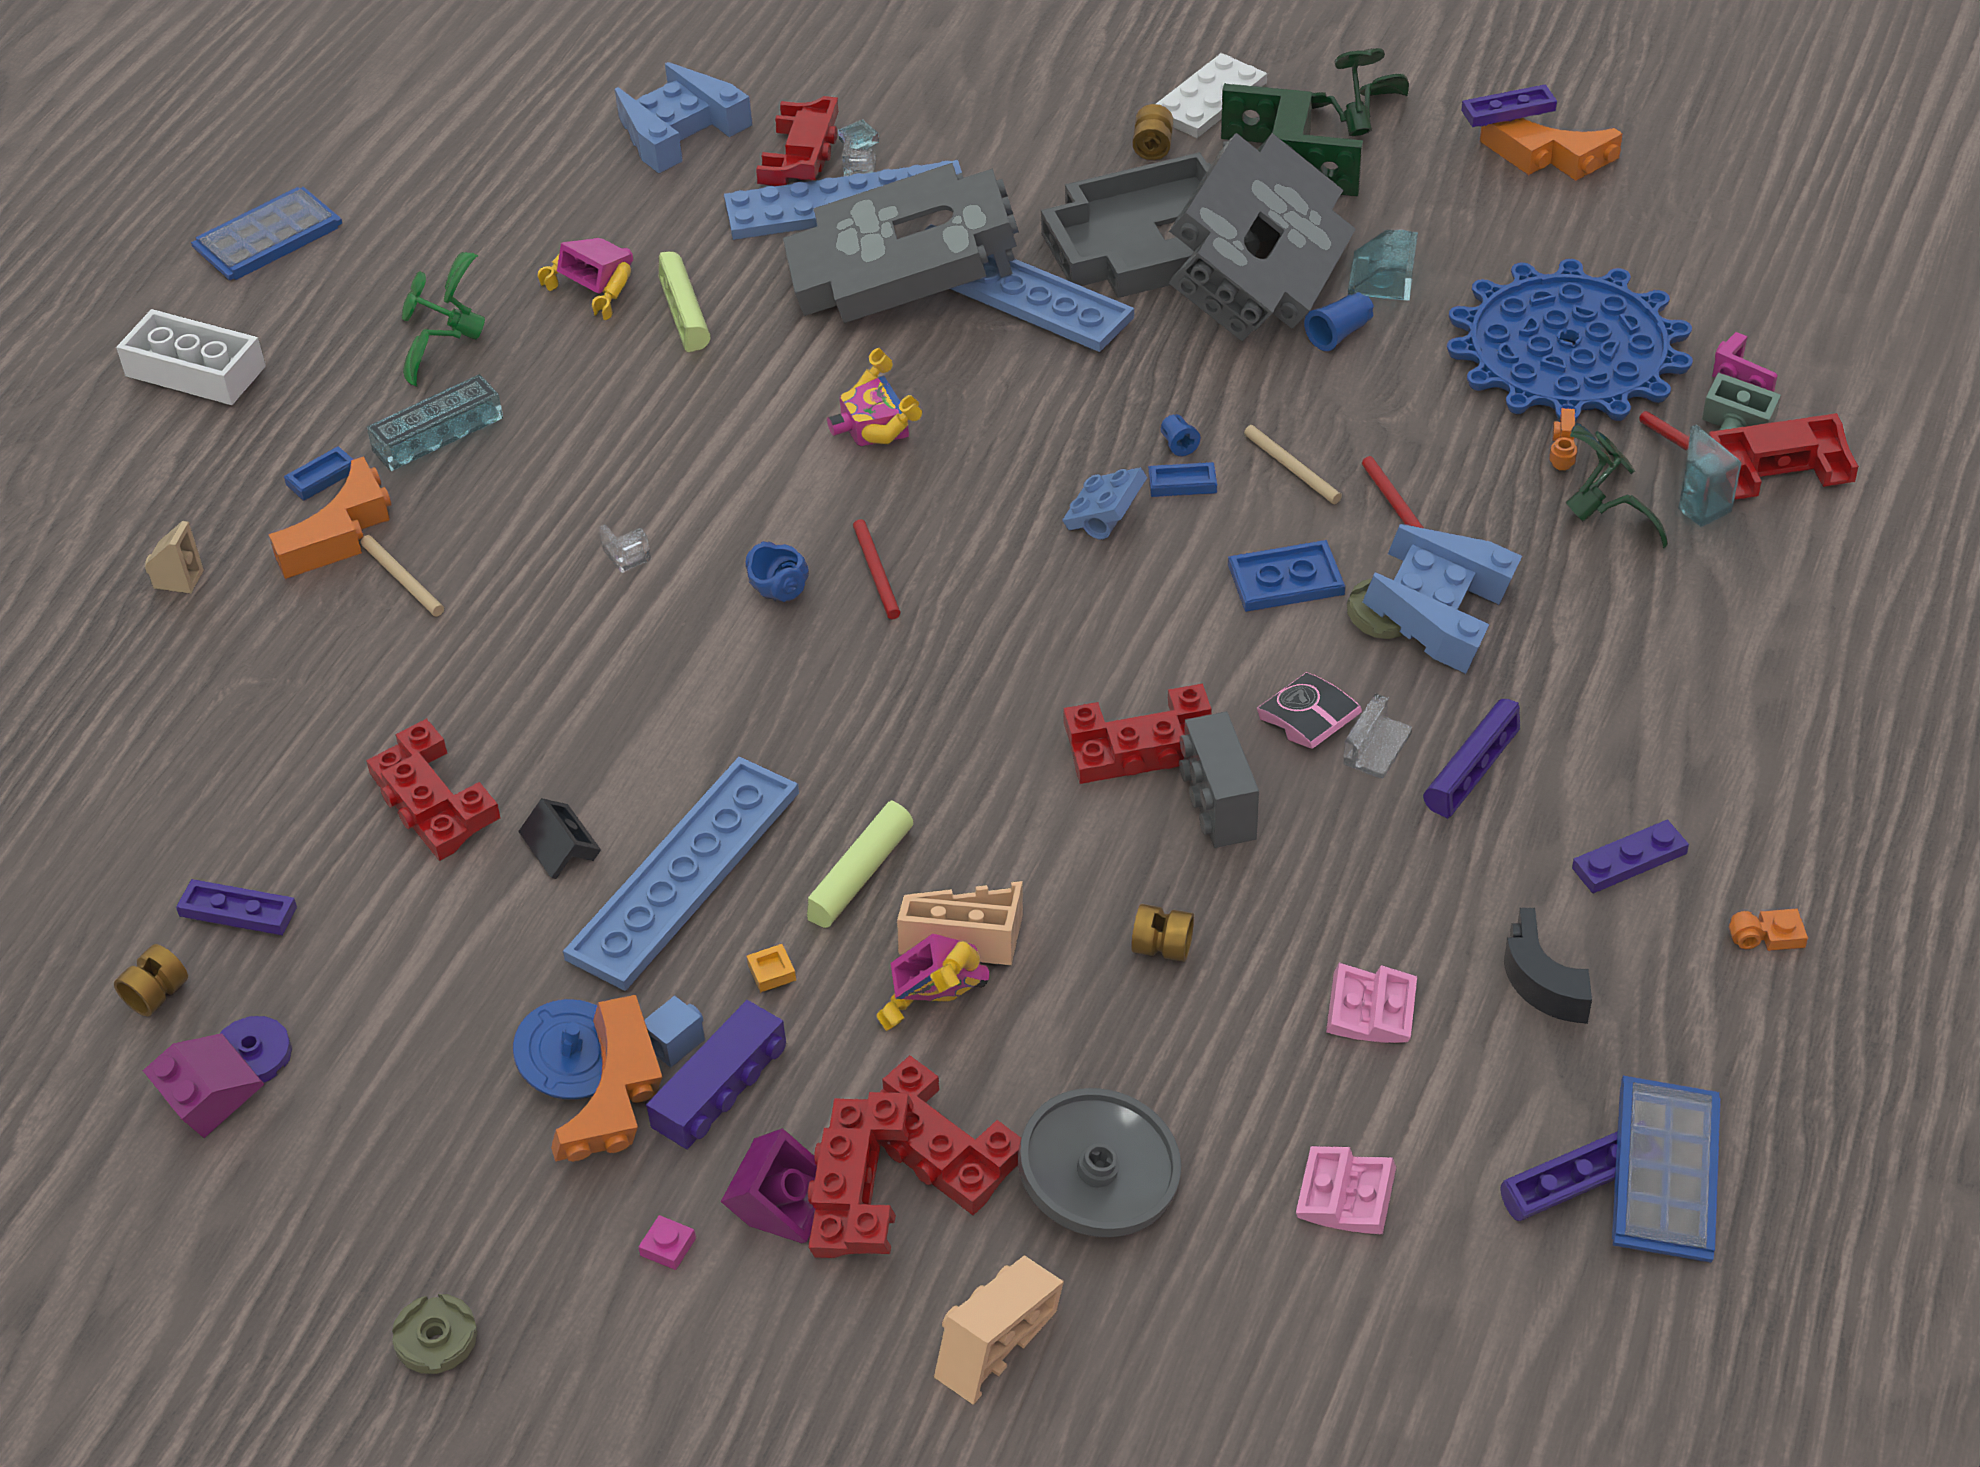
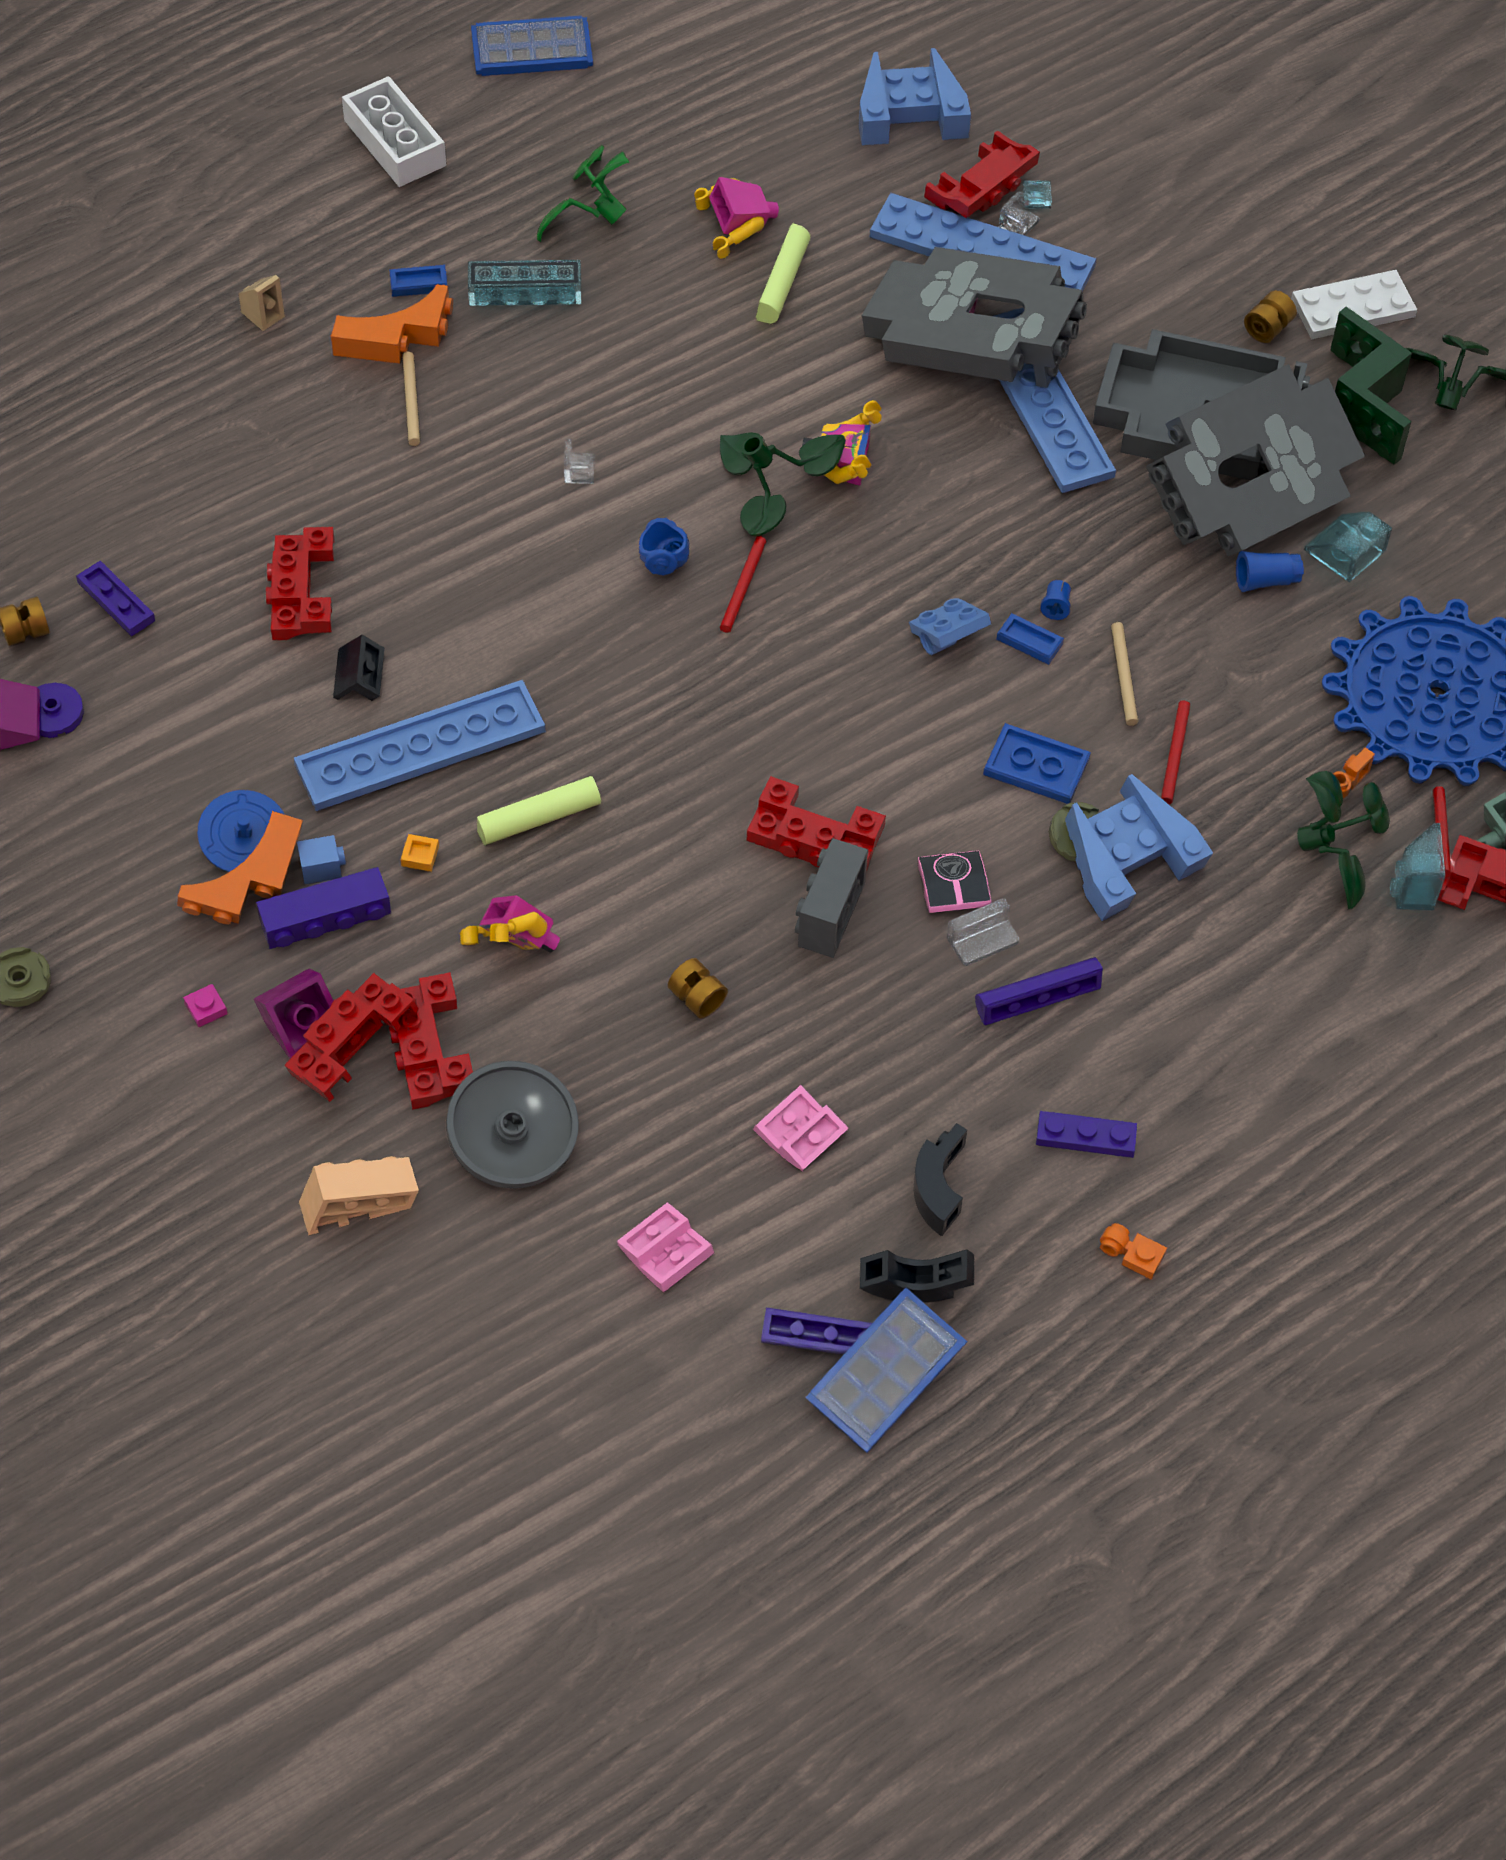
camera: 30 degrees right, 10 degrees up
(778, 458) = (749, 449): none -> dark green plant
(979, 918) = (576, 905): light nougat wedge -> none
(1596, 1078) = (928, 1279): none -> black arch

